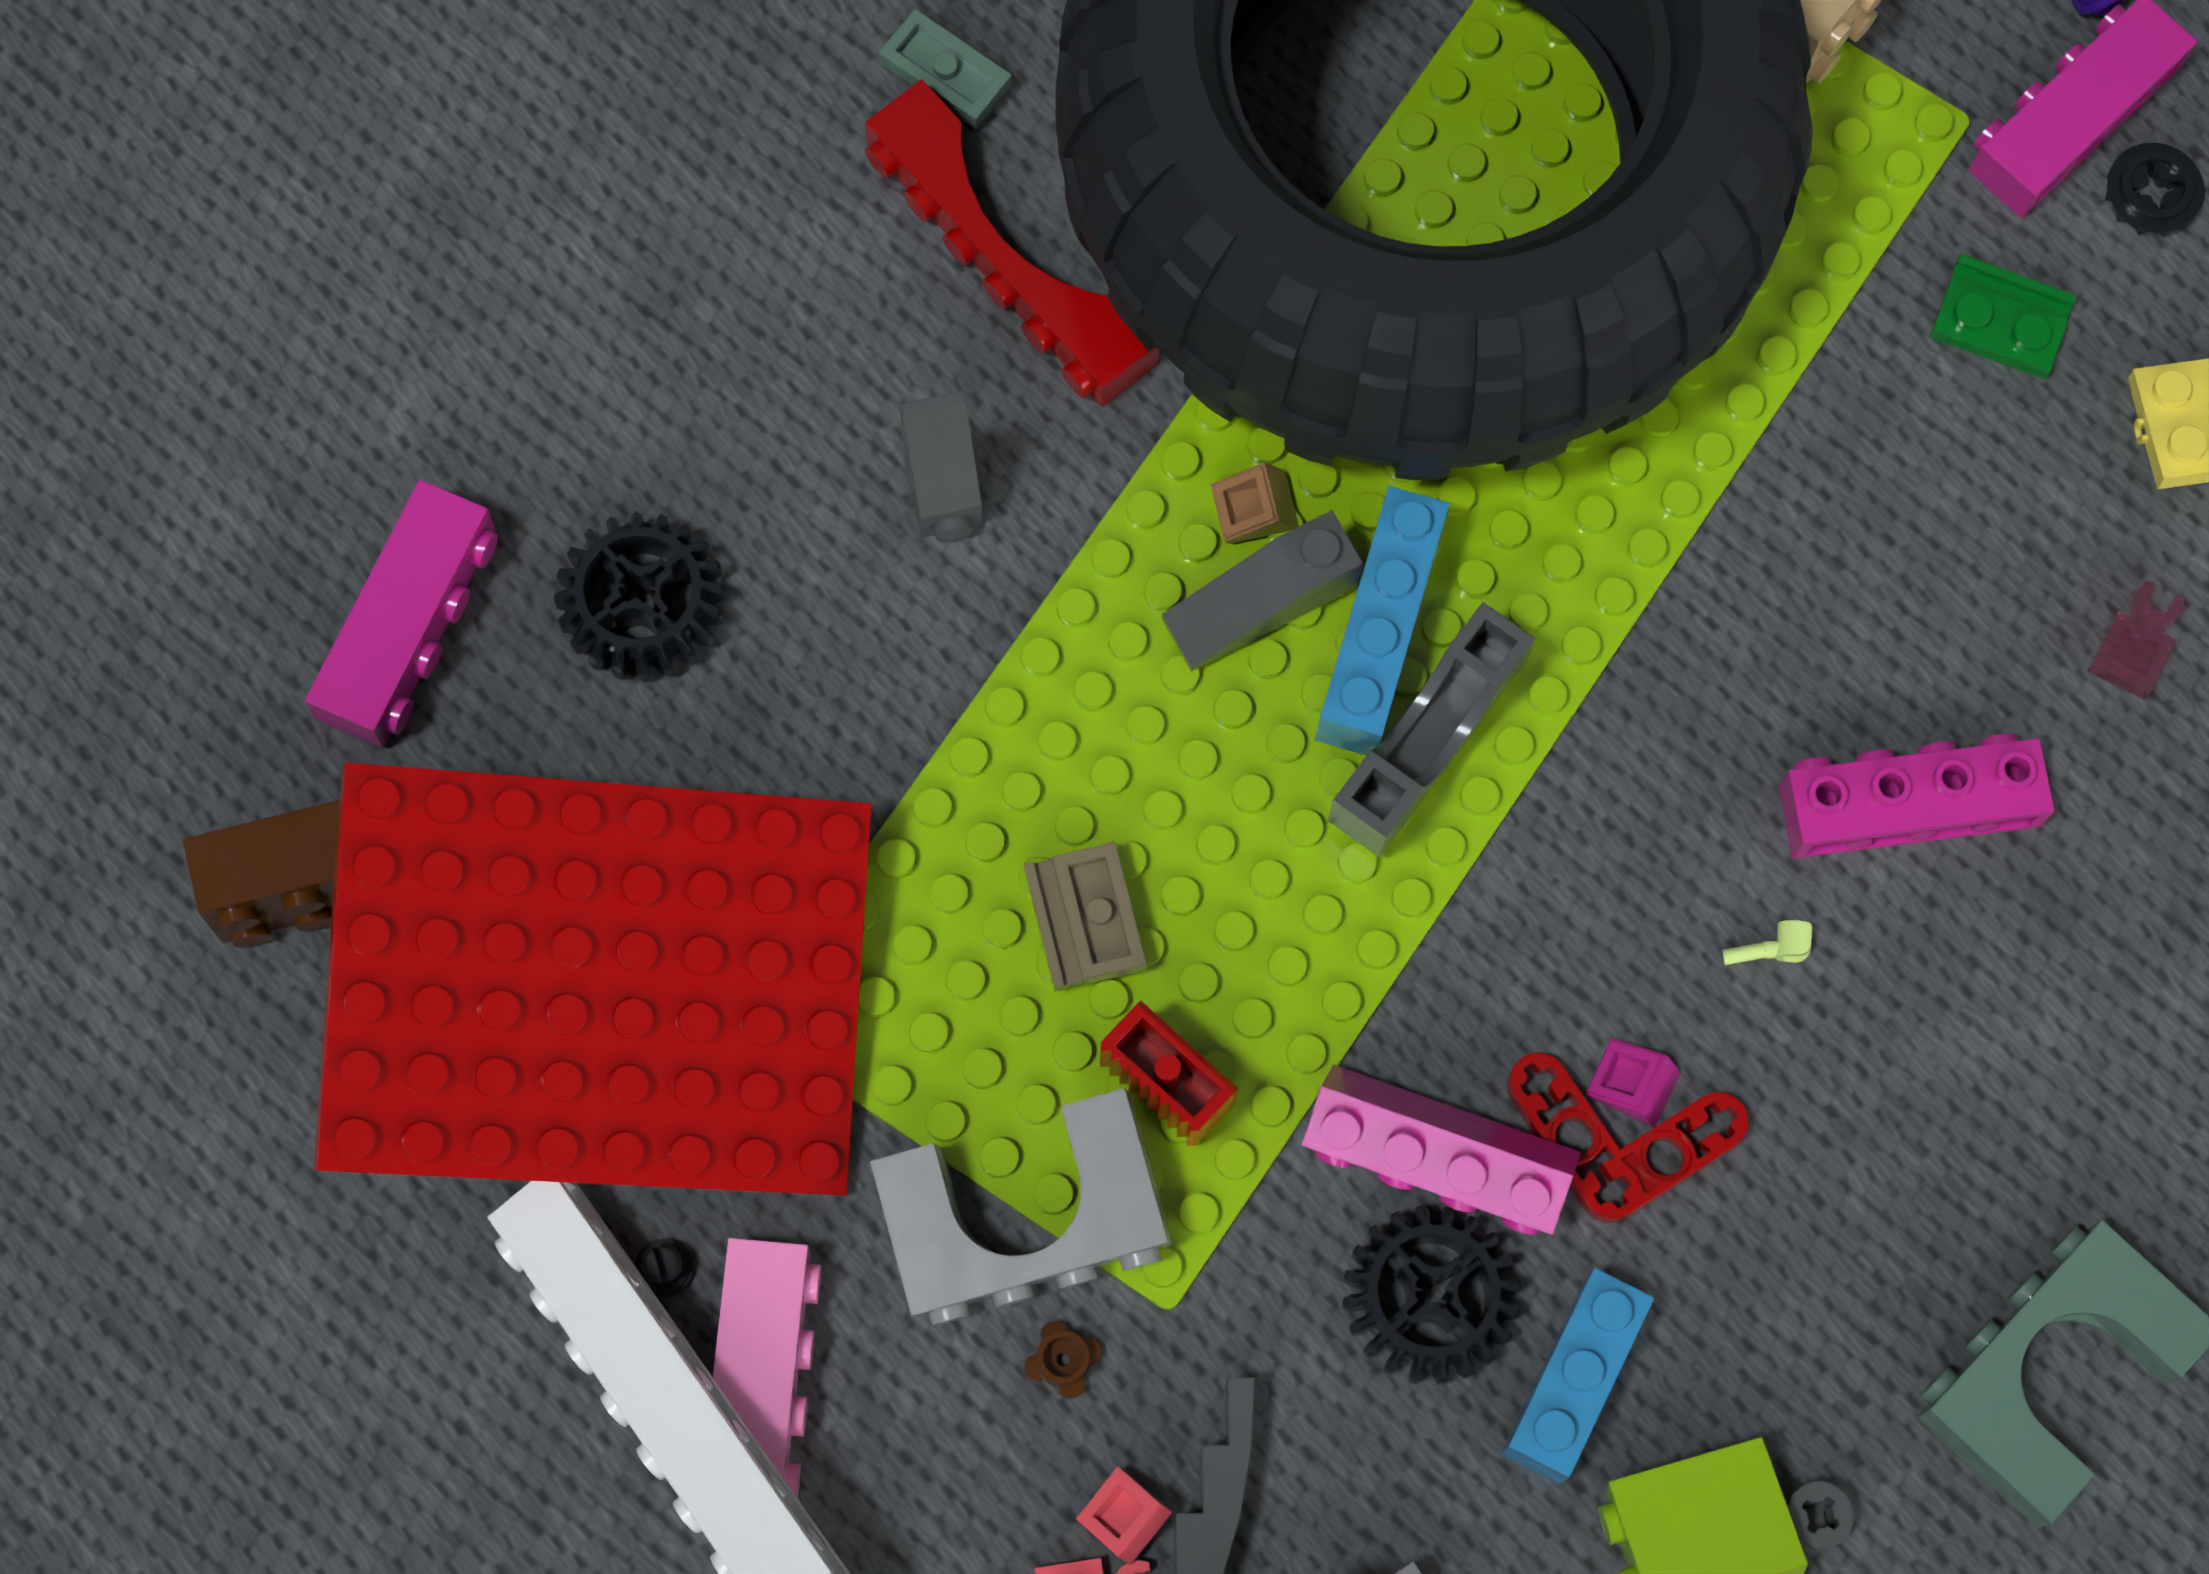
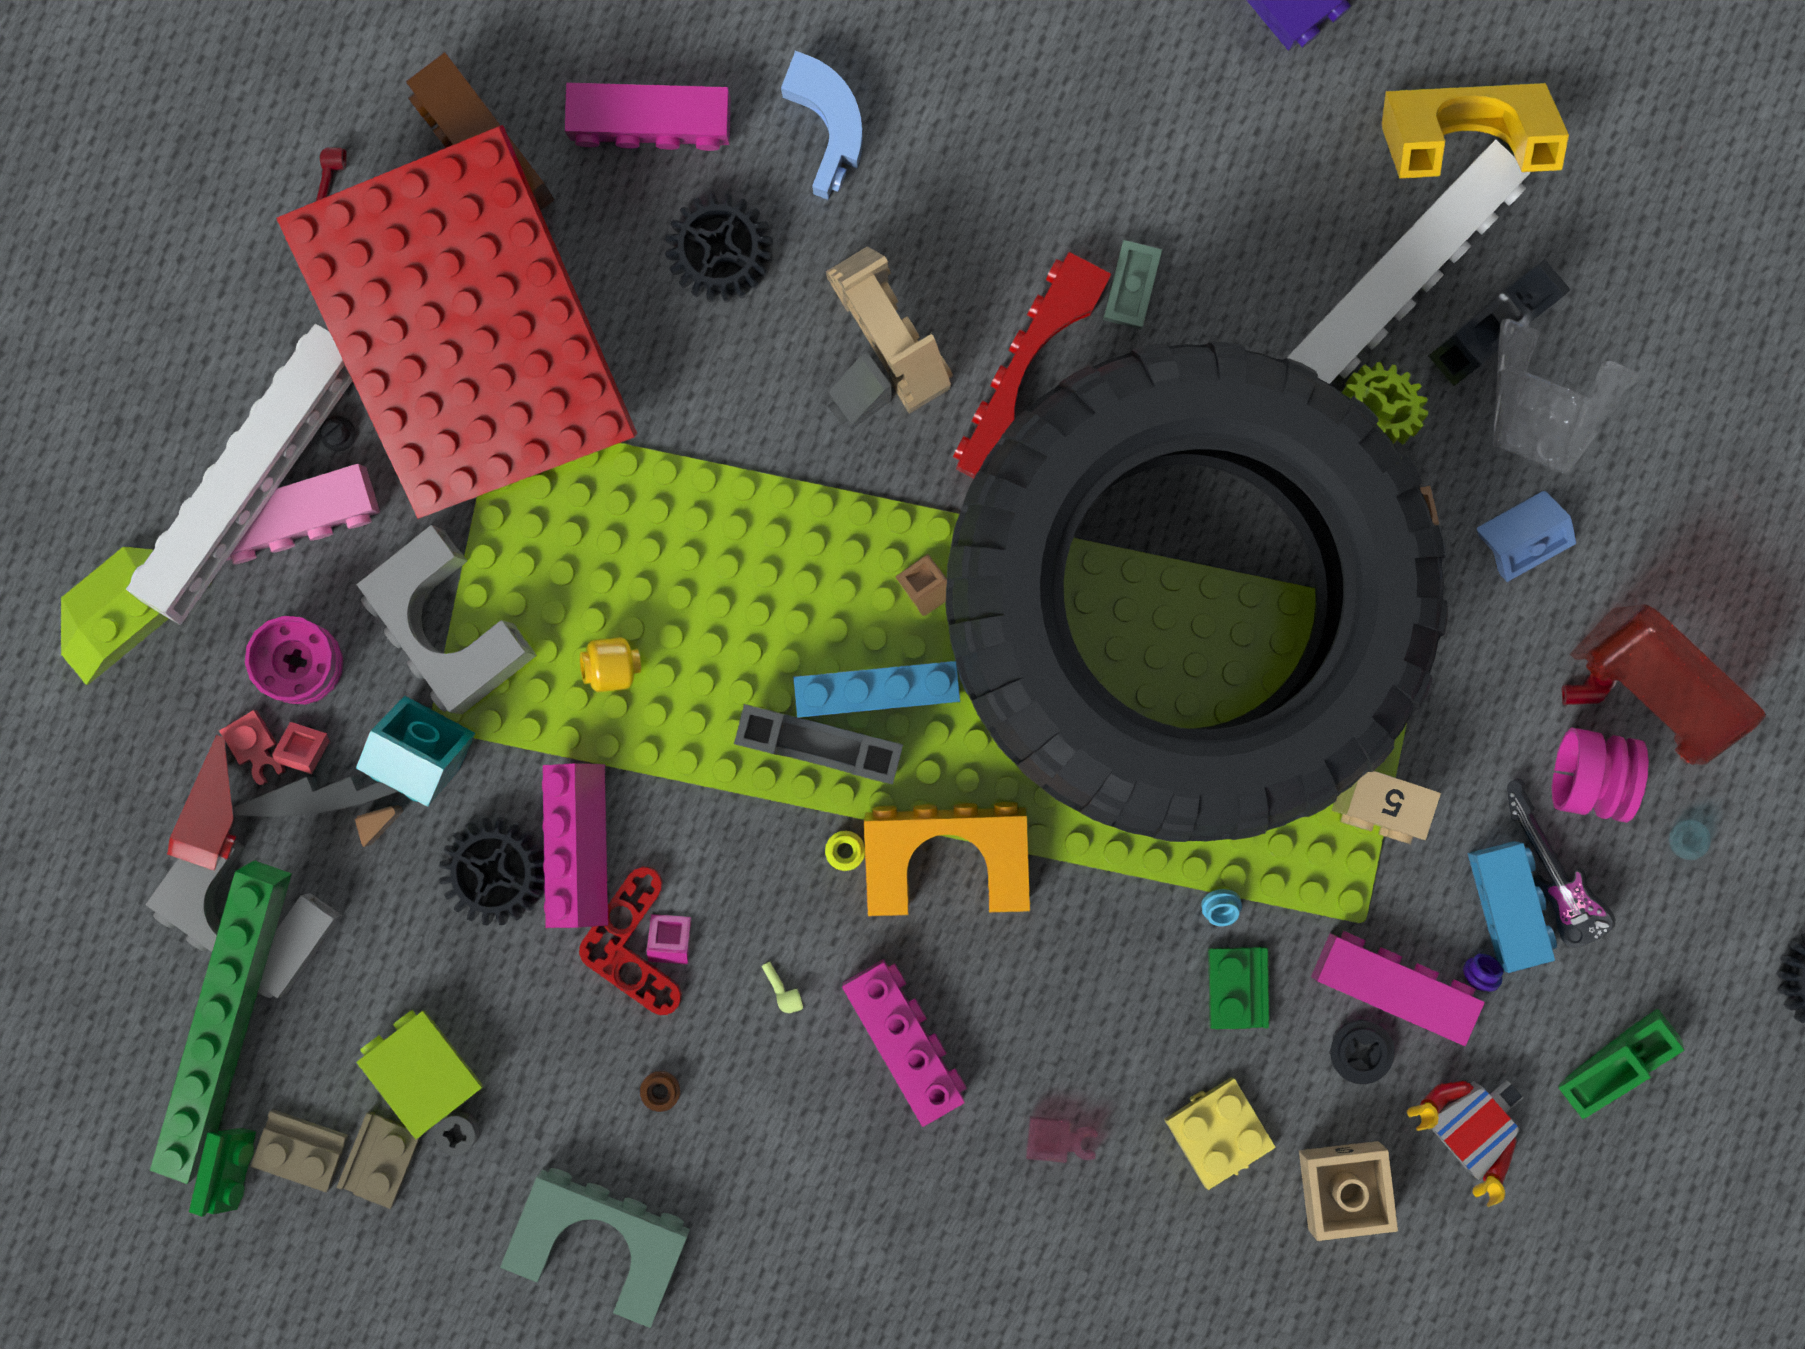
camera: 70 degrees right, 15 degrees up
(247, 1105) = (330, 159): none -> dark red hand
(518, 355) = (826, 93): none -> light blue arch
(854, 388) = (912, 366): none -> tan wedge
(985, 1419) = (270, 656): none -> dark pink wheel
(1058, 1341) = (366, 684): reddish brown plate -> none
(1085, 916) = (628, 587): dark tan plate -> none
(1167, 1073) = (549, 672): red brick -> none
(1190, 986) = (609, 664): none -> yellow head
(1205, 1325) = (415, 750): none -> teal brick
(1266, 591) = (867, 611): dark grey slope -> none
(1286, 1444) = (375, 823): none -> medium nougat slope
(1577, 1376) = (478, 971): dark azure brick -> none
(1600, 755) = (837, 861): none -> neon yellow plate
(1610, 685) = (895, 835): none -> light orange arch
(1874, 1171) = (653, 1102): none -> reddish brown plate
(1879, 290) = (1221, 907): none -> medium azure plate

